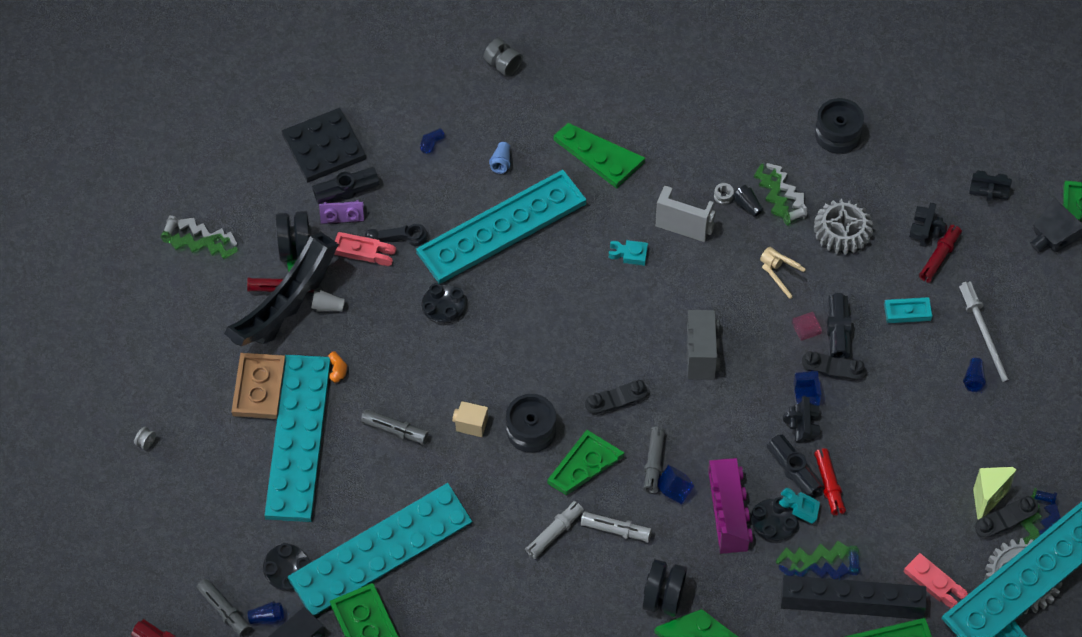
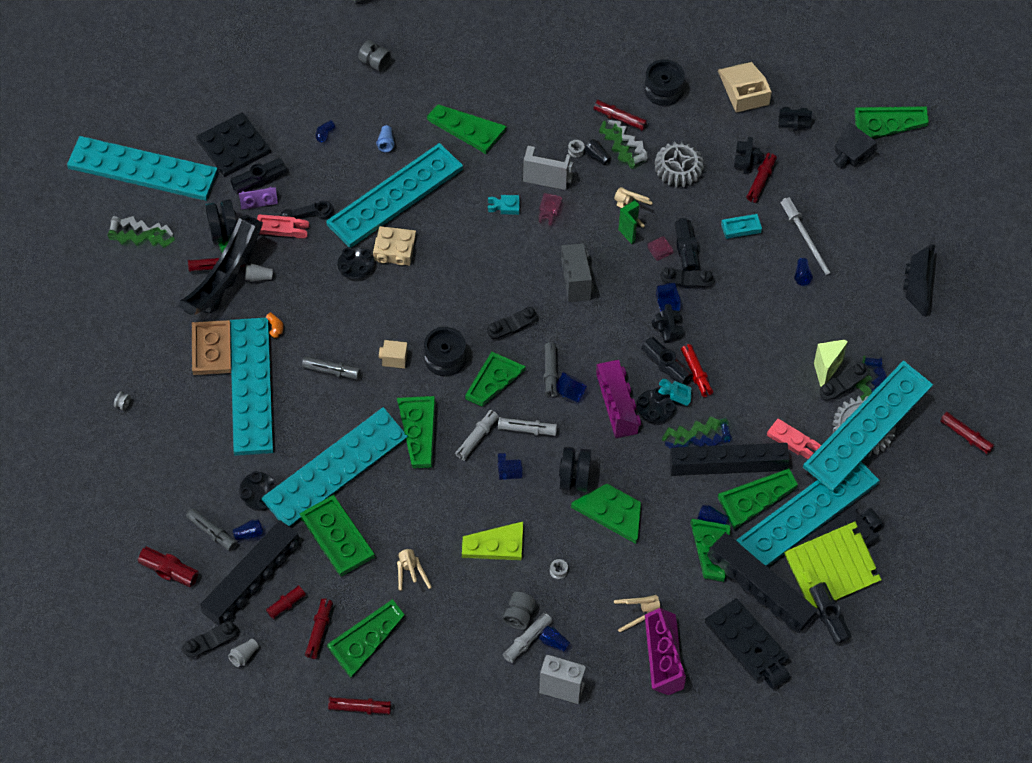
camera: 10 degrees left, 0 degrees up
(214, 161) = (142, 168): none -> teal plate
(487, 510) = (418, 425): none -> green wing
(491, 287) = (394, 245): none -> tan plate
(586, 575) = (509, 468): none -> clear blue panel
(681, 259) = (549, 206): none -> clear pink plate
(773, 154) = (614, 112): none -> dark red pin
(773, 288) = (629, 221): none -> green panel
(936, 141) = (745, 86): none -> tan slope

